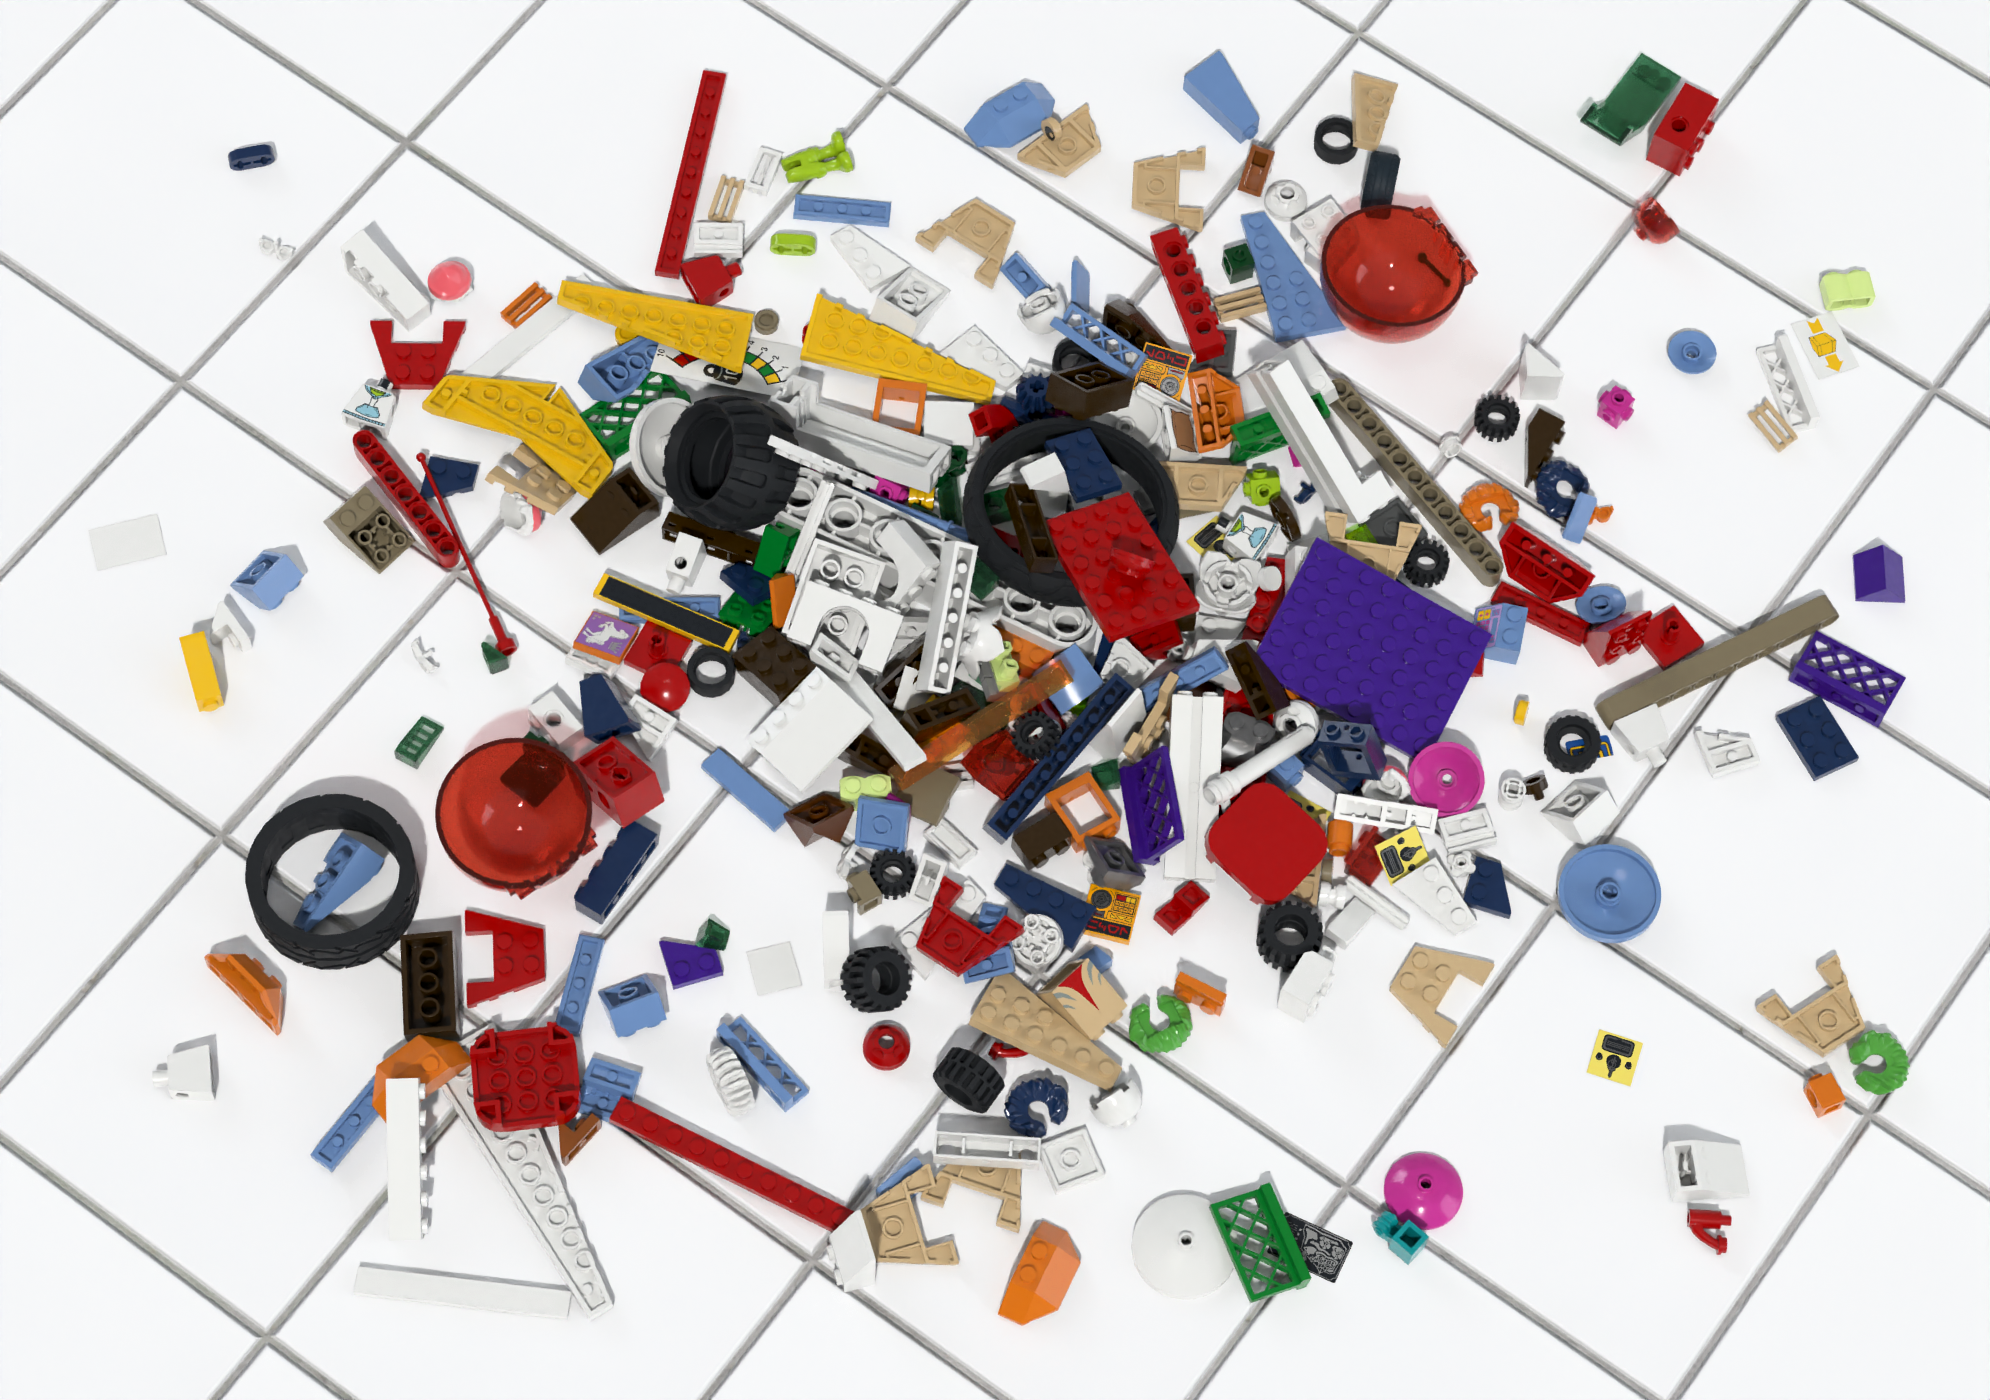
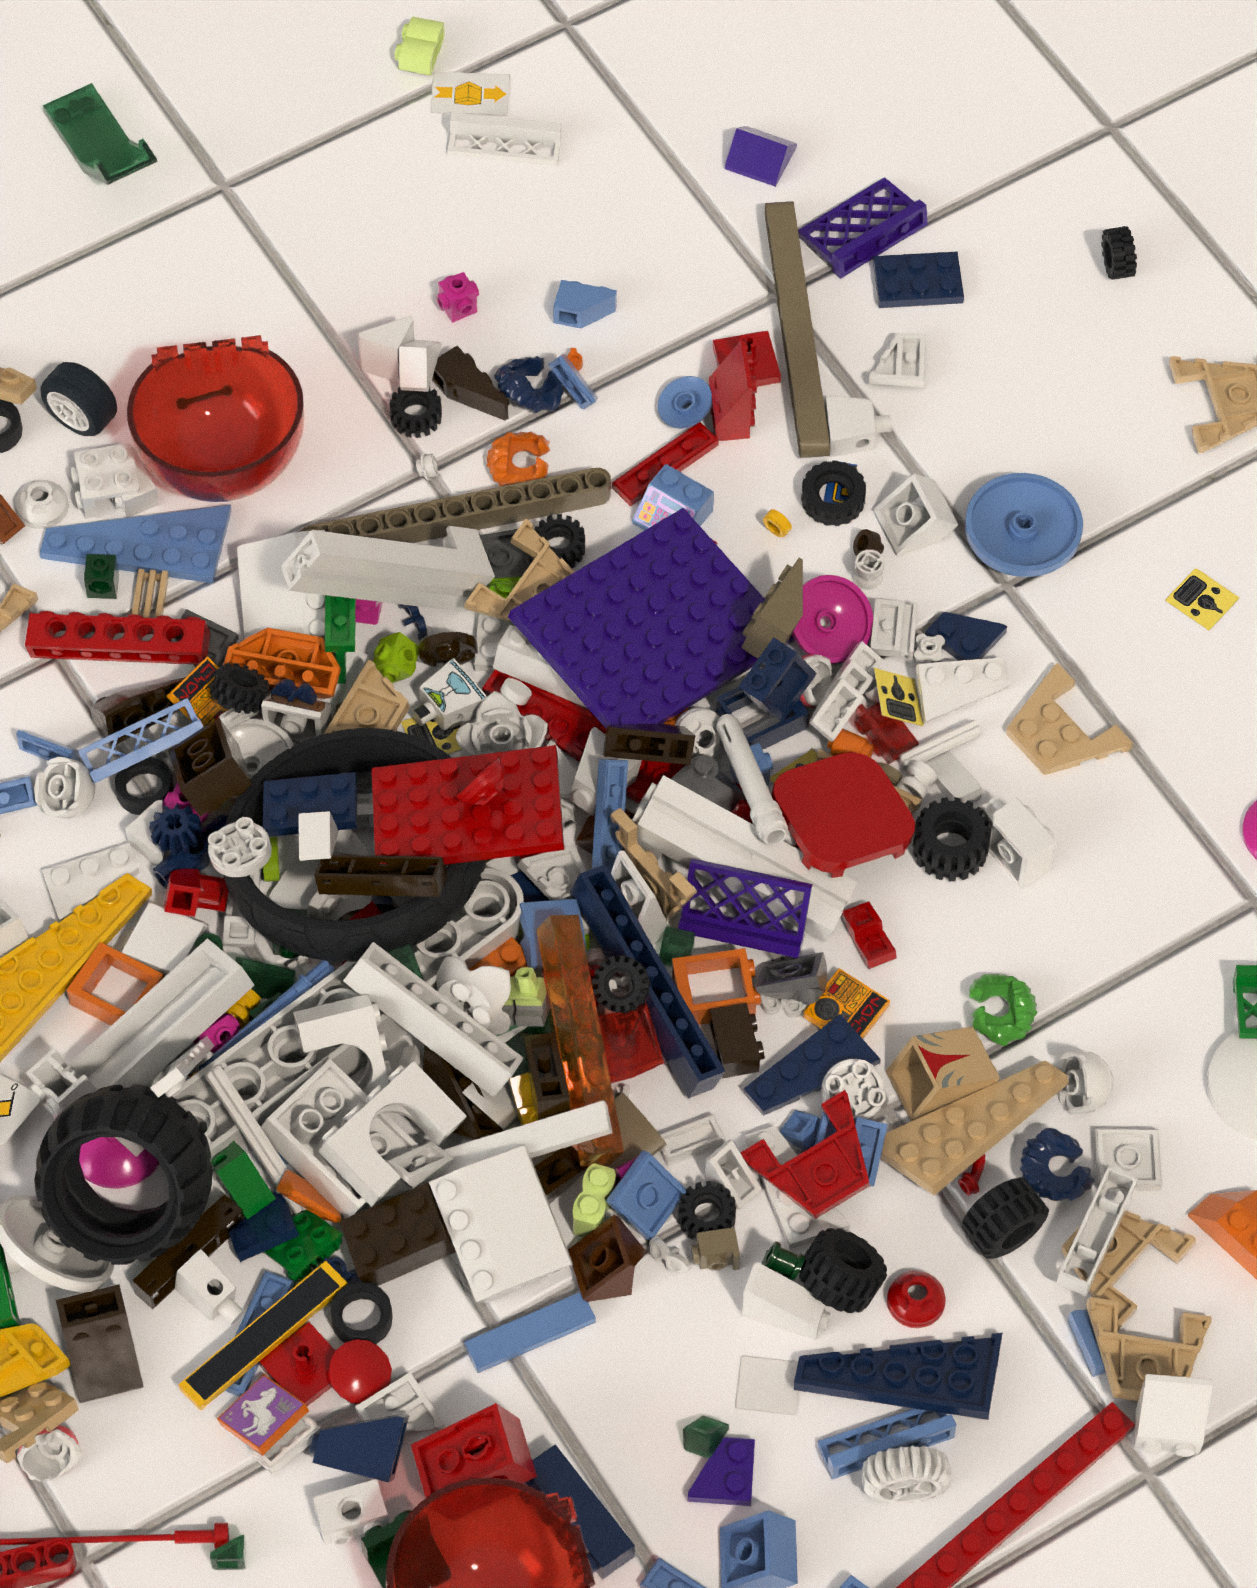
camera: 65 degrees left, 5 degrees down
(819, 1067) = (916, 1375): none -> dark blue wing
(863, 934) = (783, 1261): none -> dark green piece
(1022, 432) = (239, 848): none -> white tile
(1098, 958) = (894, 1041): medium blue slope -> none
(1183, 383) = (239, 688): none -> black tyre
(1190, 423) = (288, 689): none -> dark blue piece
(1194, 991) = (982, 953): orange plate -> none
(1411, 734) = (779, 614): none -> dark tan slope
(1531, 398) = (418, 364): none -> white slope
(1543, 566) = (620, 433): red wedge -> none
(1654, 223) = (256, 174): clear red cylinder -> none
(1656, 497) = (582, 304): none -> medium blue slope
(1683, 130) = (160, 104): red piece -> none
(1692, 344) = (426, 205): medium blue dish -> none
(1760, 411) = (542, 162): tan tile -> none
(1918, 879) = (1119, 252): none -> black tyre

